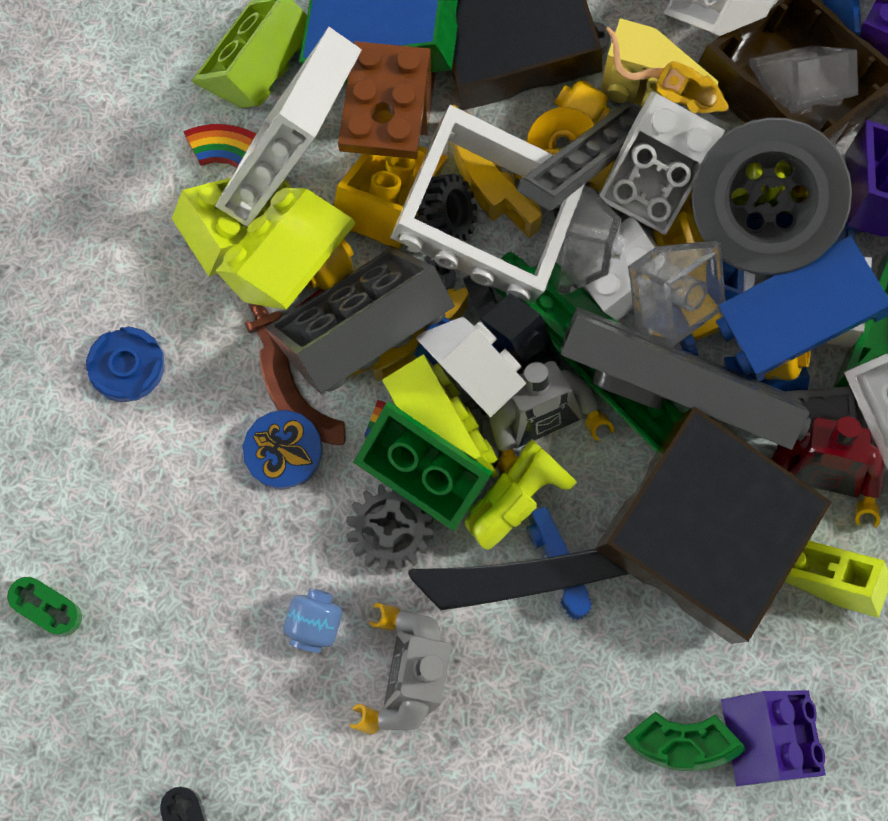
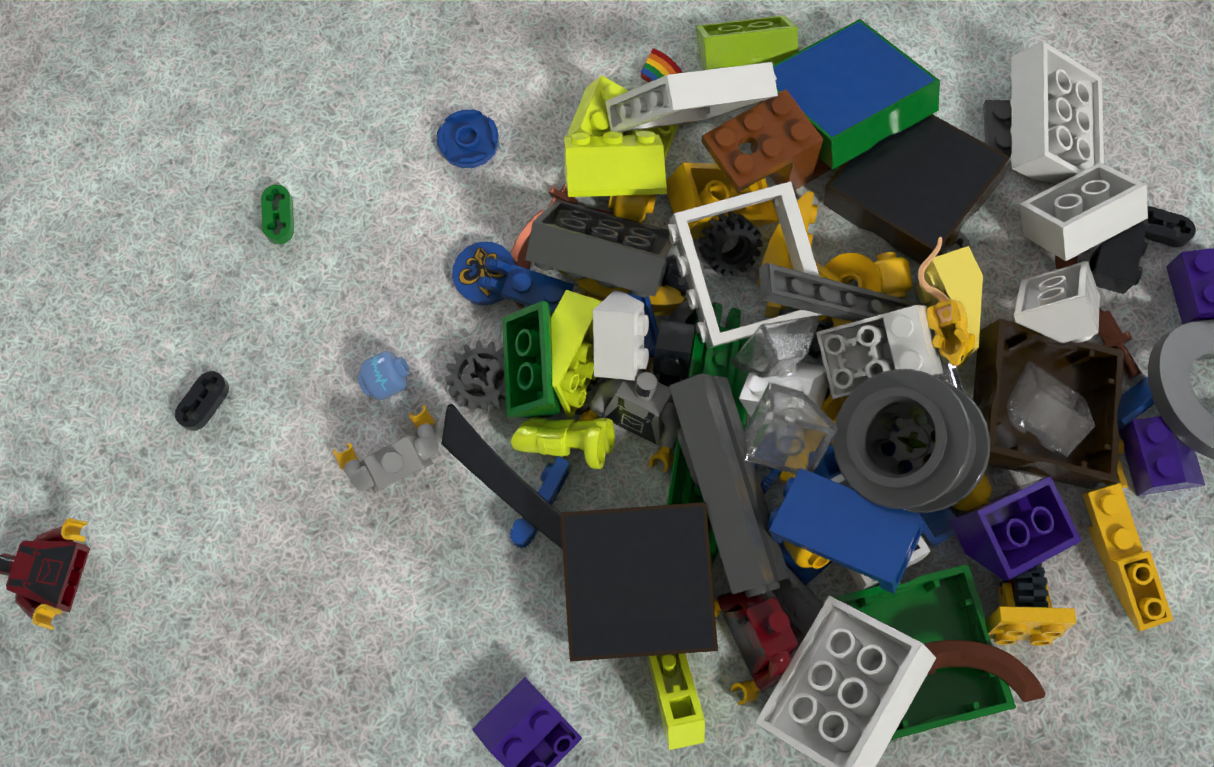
camera: 55 degrees right, 0 degrees up
(335, 418) = (524, 284): none -> blue hinge
(684, 745) = (475, 675): green tile -> none

